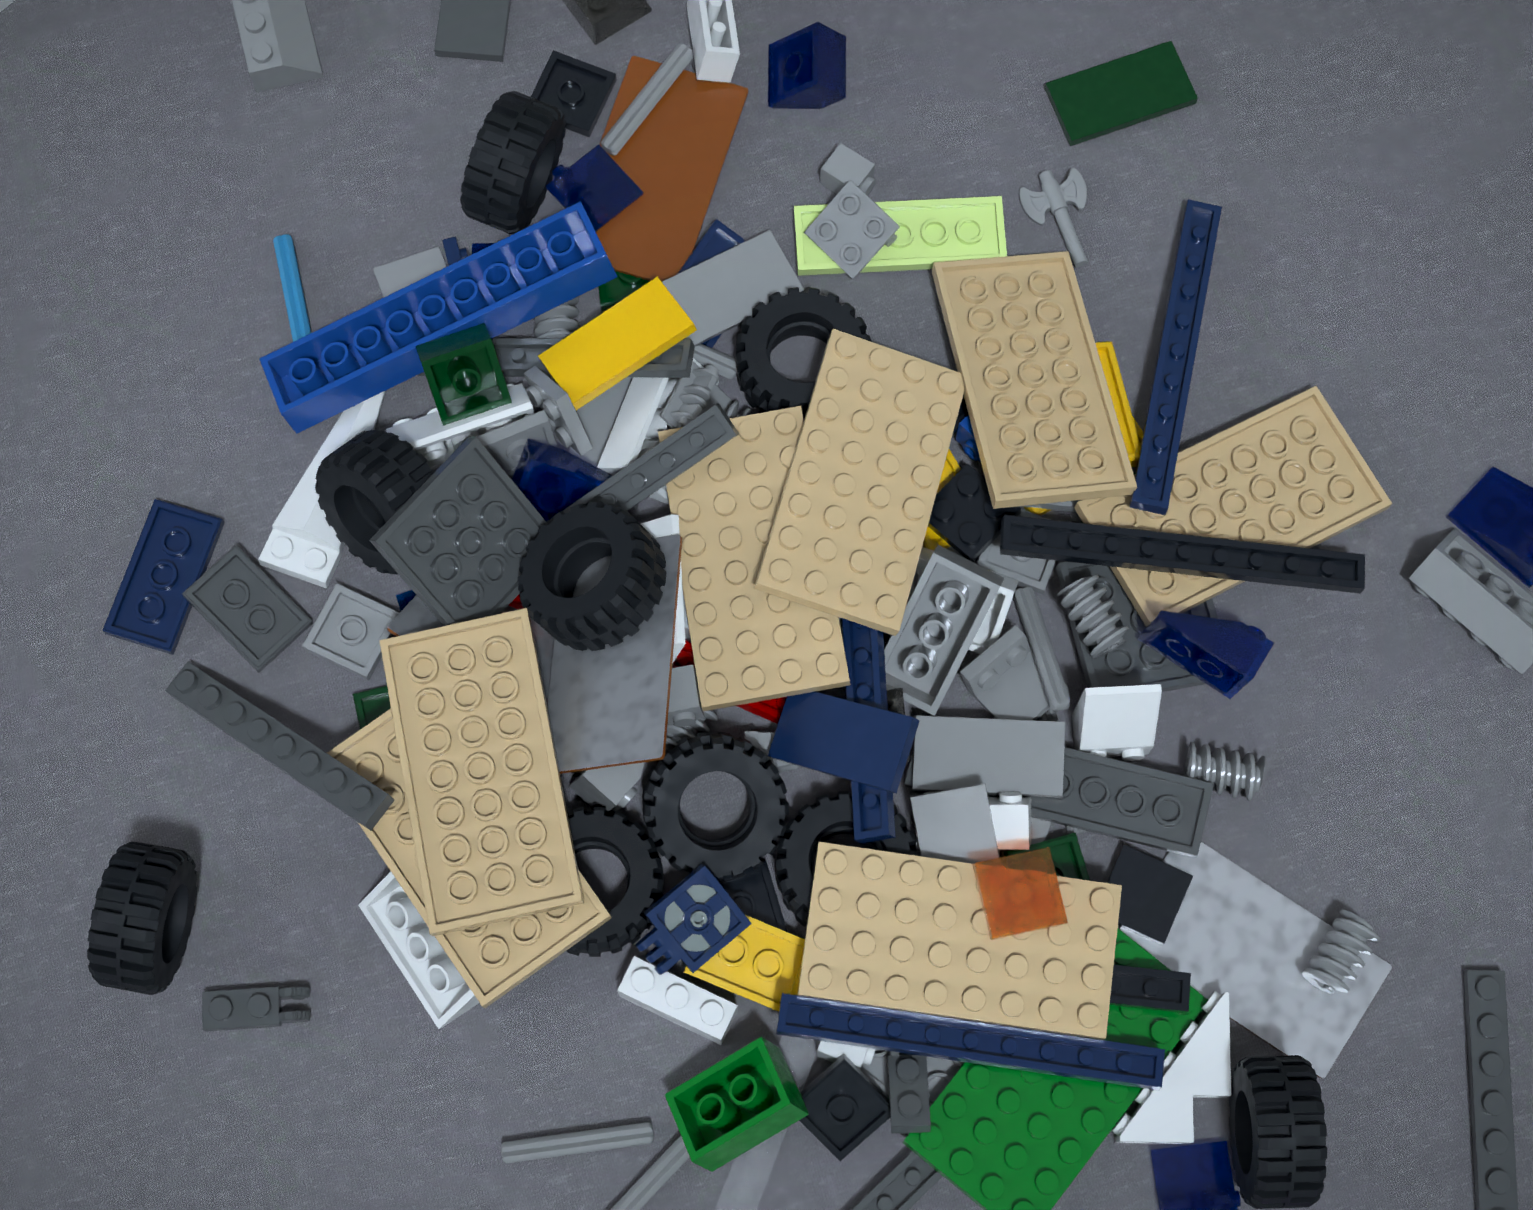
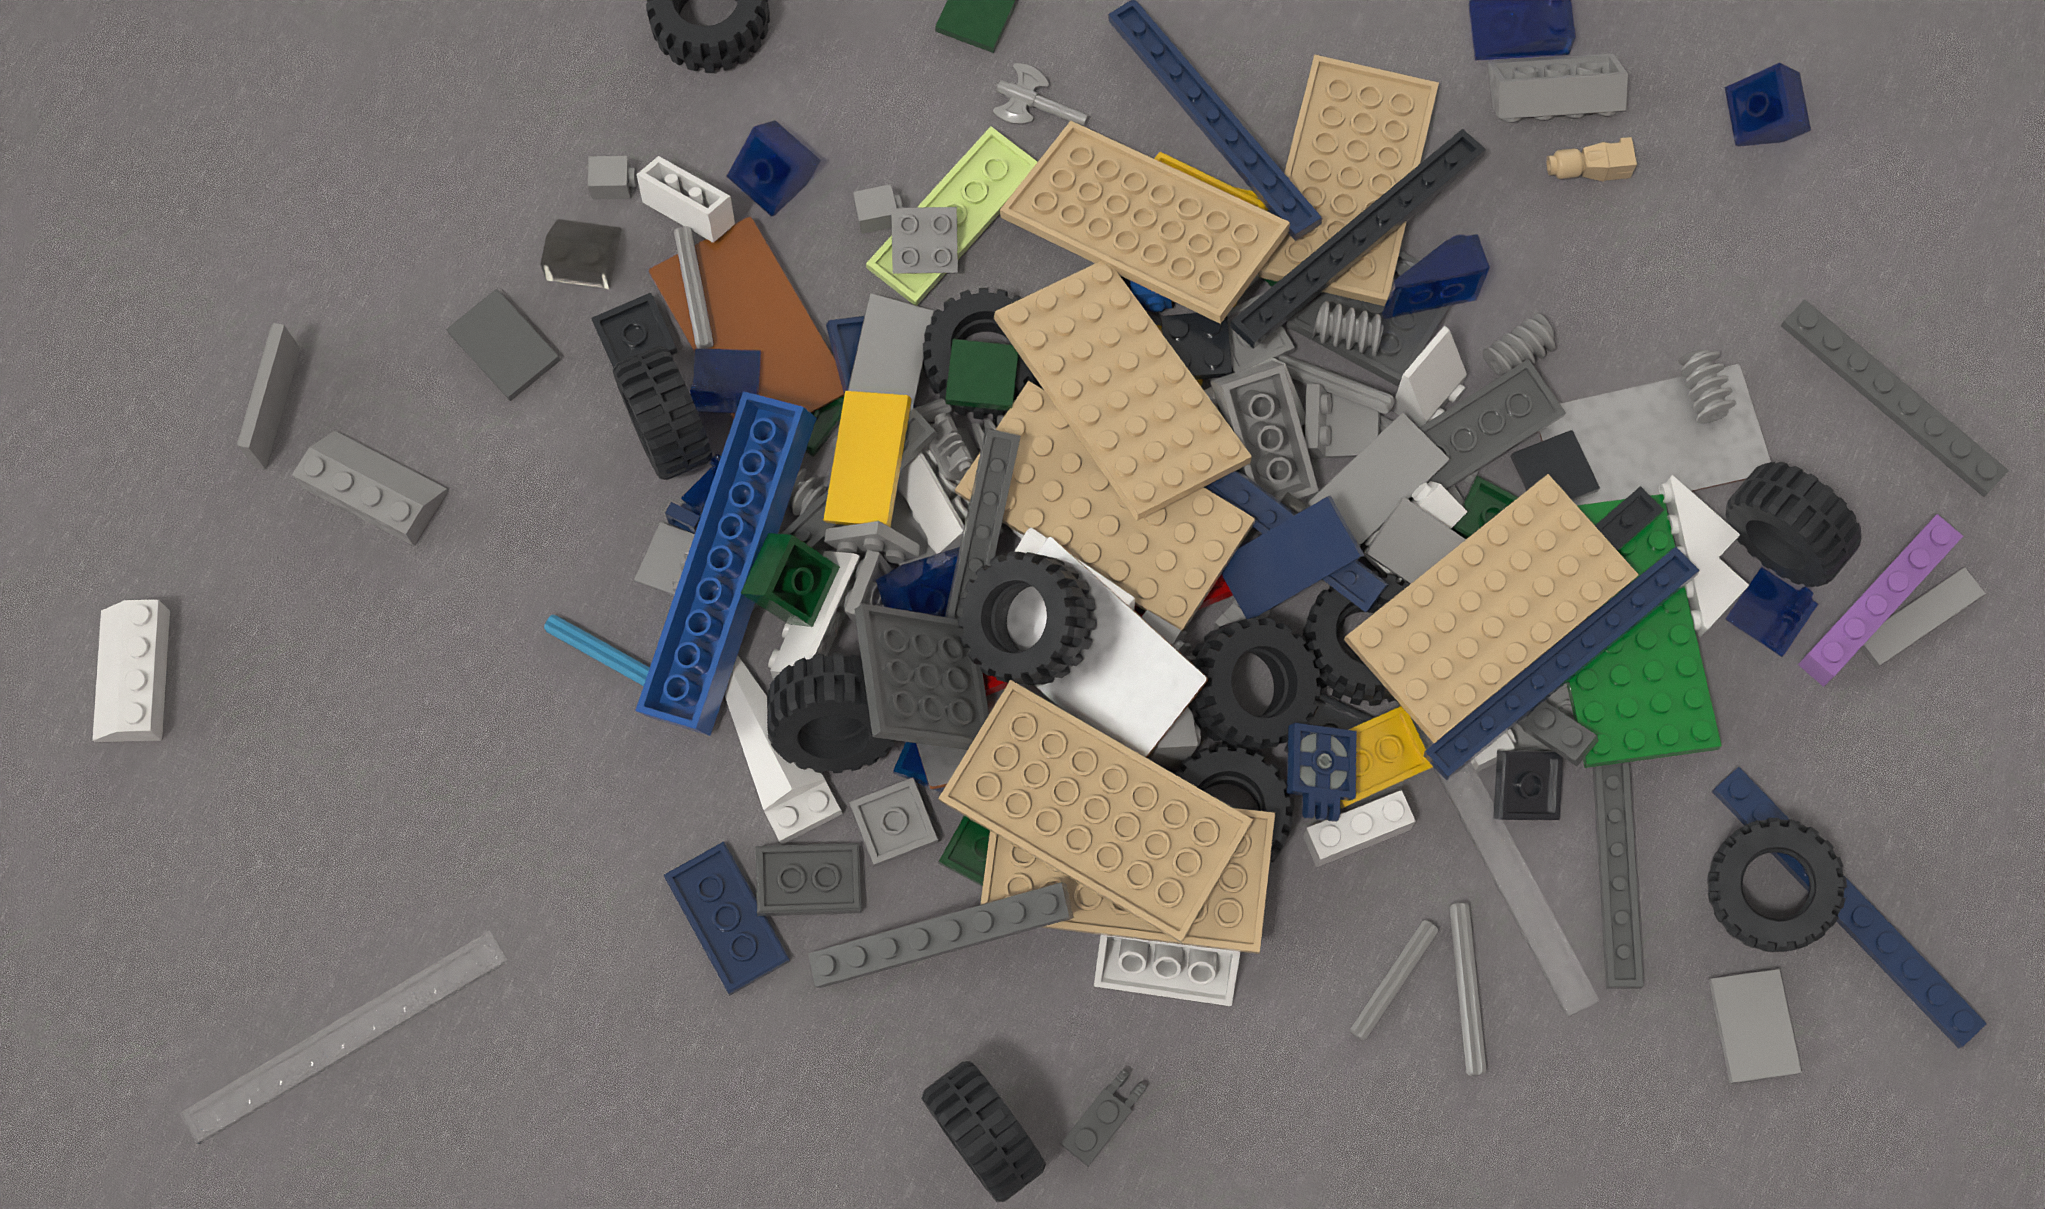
camera: 45 degrees left, 0 degrees up
(736, 1104) = (1469, 848): green brick -> none
(772, 366) = (981, 375): none -> dark green tile
(1020, 893) = (1499, 539): clear orange plate -> none
(1452, 690) = (1596, 162): none -> tan piece

